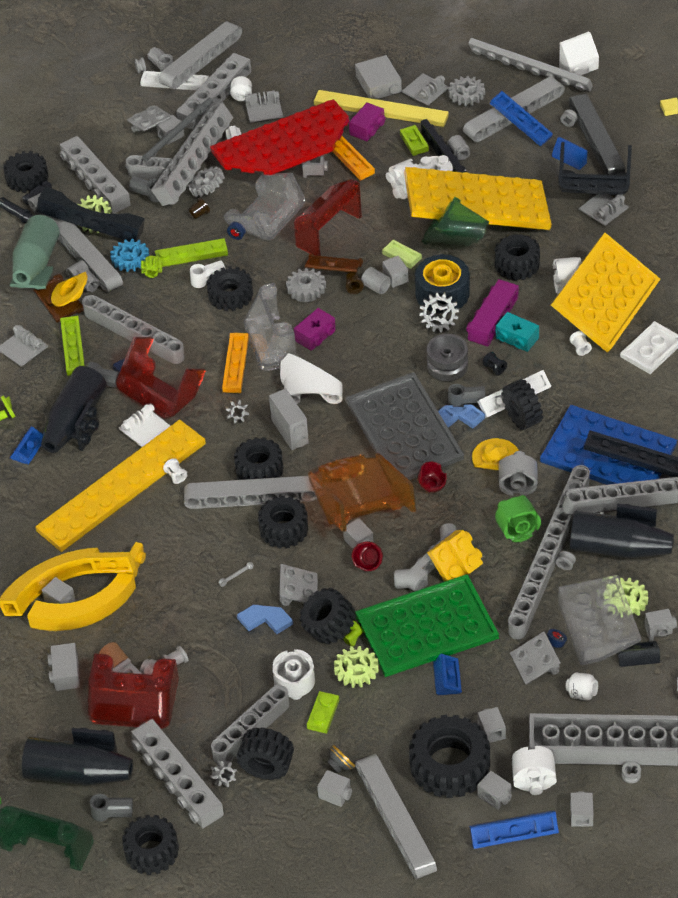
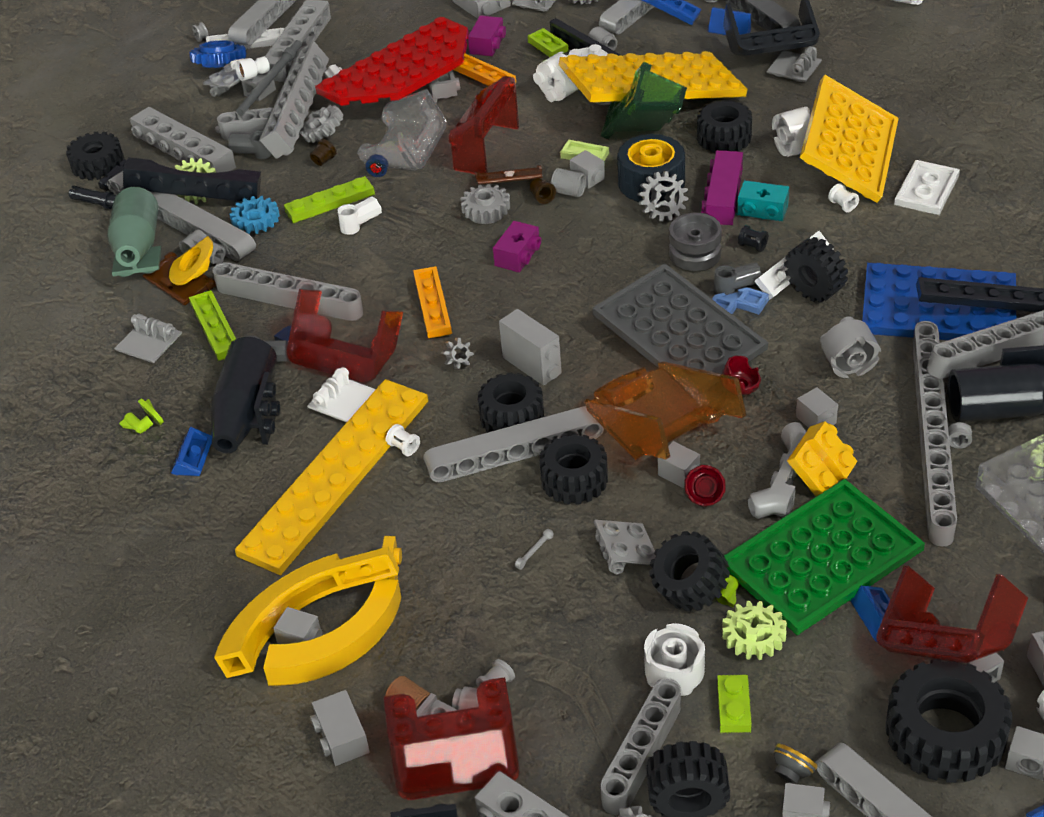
camera: 15 degrees left, 5 degrees down
(146, 93) = (217, 53): none -> blue gear
(151, 266) = (286, 220): lime gear -> none
(159, 58) = (221, 21): light grey piece -> none
(162, 118) = (248, 68): none -> white piece
(230, 279) = (393, 225): black tyre -> none
(240, 88) = (327, 31): white head -> none
(258, 614) = (585, 595): medium blue tile -> none
(263, 107) = (360, 45): light grey hinge -> none
(268, 340) = (465, 265): clear windscreen -> none
(305, 378) = (536, 297): white panel -> none
(391, 109) = (512, 22): light yellow tile -> none
(459, 689) = (915, 632): none -> clear red windscreen
(473, 517) = (816, 408): none -> light grey brick
(491, 451) = (800, 336): yellow hat -> none
(517, 518) = (876, 398): bright green brick -> none
(536, 658) = (984, 558): light grey hinge -> none
(556, 638) = (1000, 532): dark blue tile -> none

